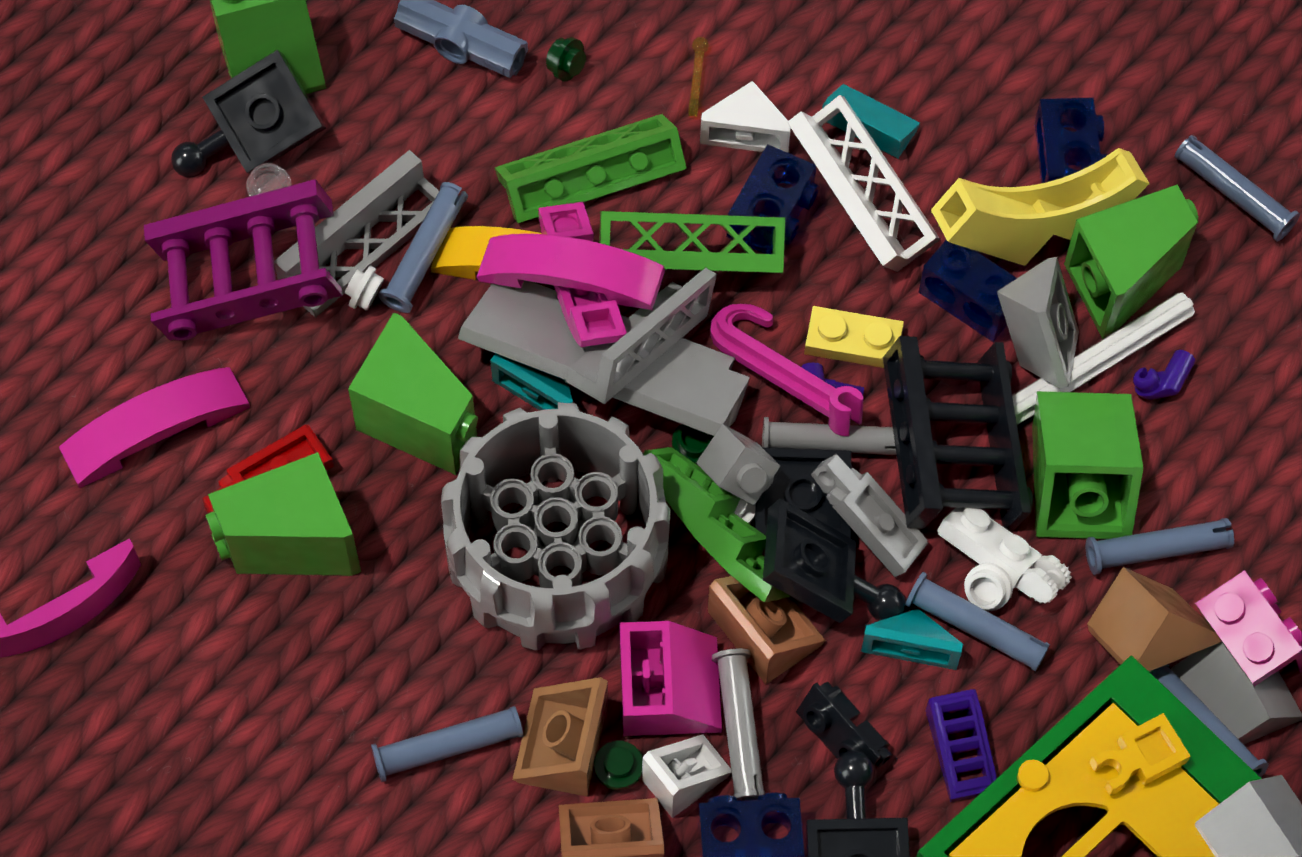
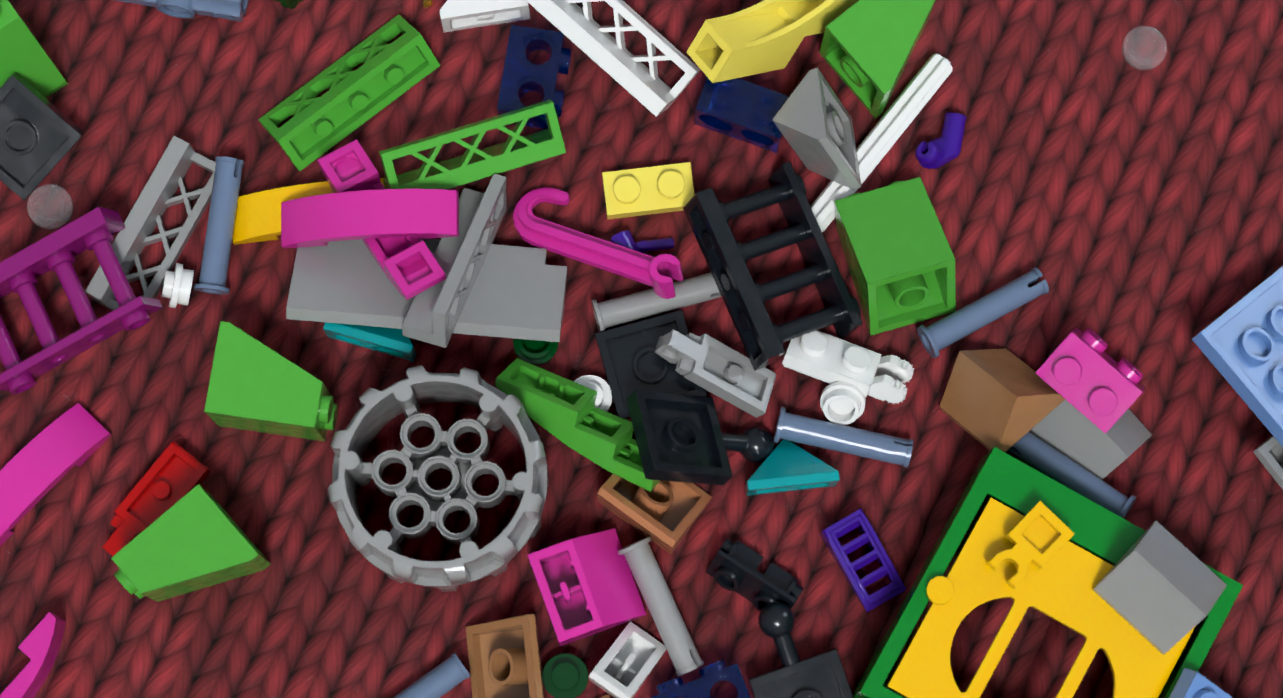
camera: 20 degrees left, 15 degrees up
(738, 464) = (585, 363): light grey brick -> none

